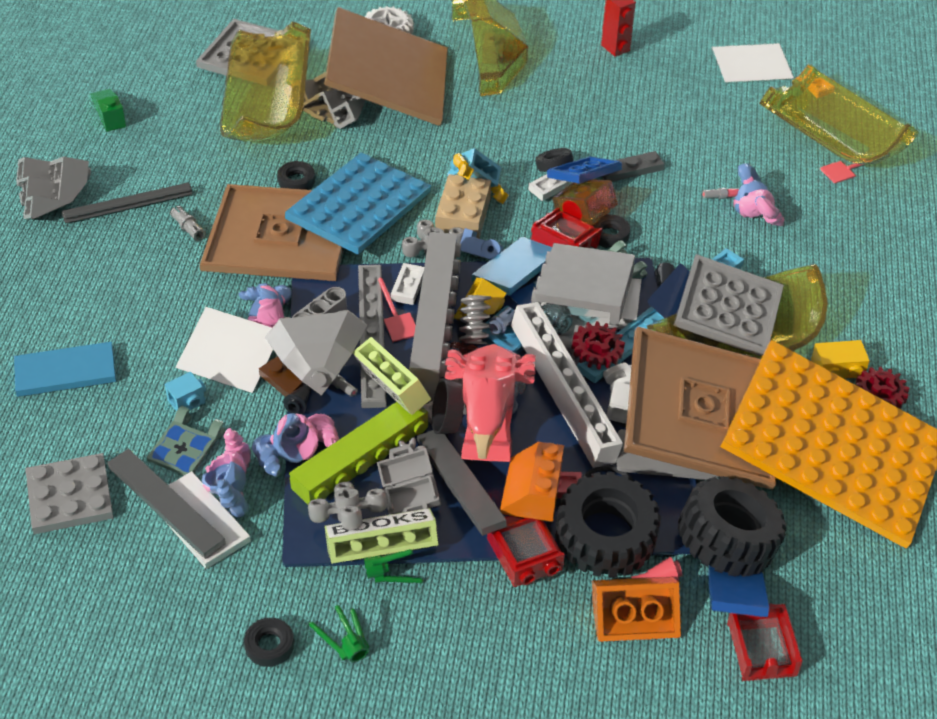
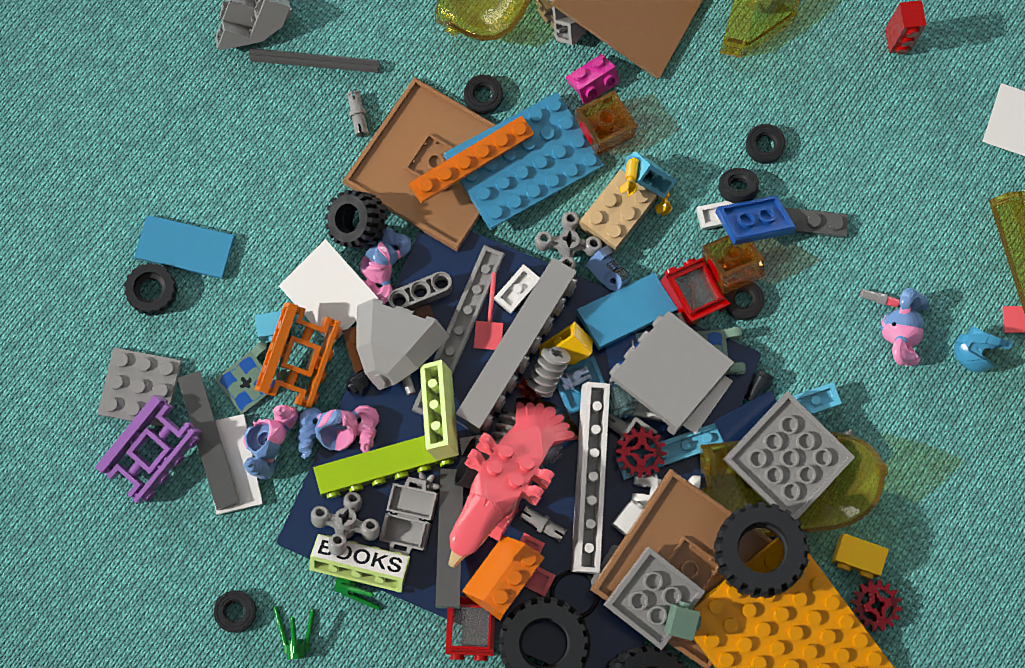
camera: 25 degrees right, 30 degrees up
(46, 424) = (145, 272): none -> black tyre
(85, 522) = (133, 439): none -> medium lavender fence
(206, 397) = (281, 348): none -> orange fence
(215, 274) = (341, 219): none -> black tyre
(312, 205) = (471, 159): none -> orange plate
(387, 137) = (594, 78): none -> dark pink bracket
(416, 154) = (605, 123): none -> clear orange brick
(526, 440) = (543, 524): none -> light grey pin
(559, 124) = (765, 157): none -> black tyre
(689, 430) = (647, 594): none -> light grey plate
(728, 431) = (683, 621): none -> sand green brick
(753, 371) = (784, 527): none -> black tyre
(821, 194) = (970, 348): none -> dark azure helmet

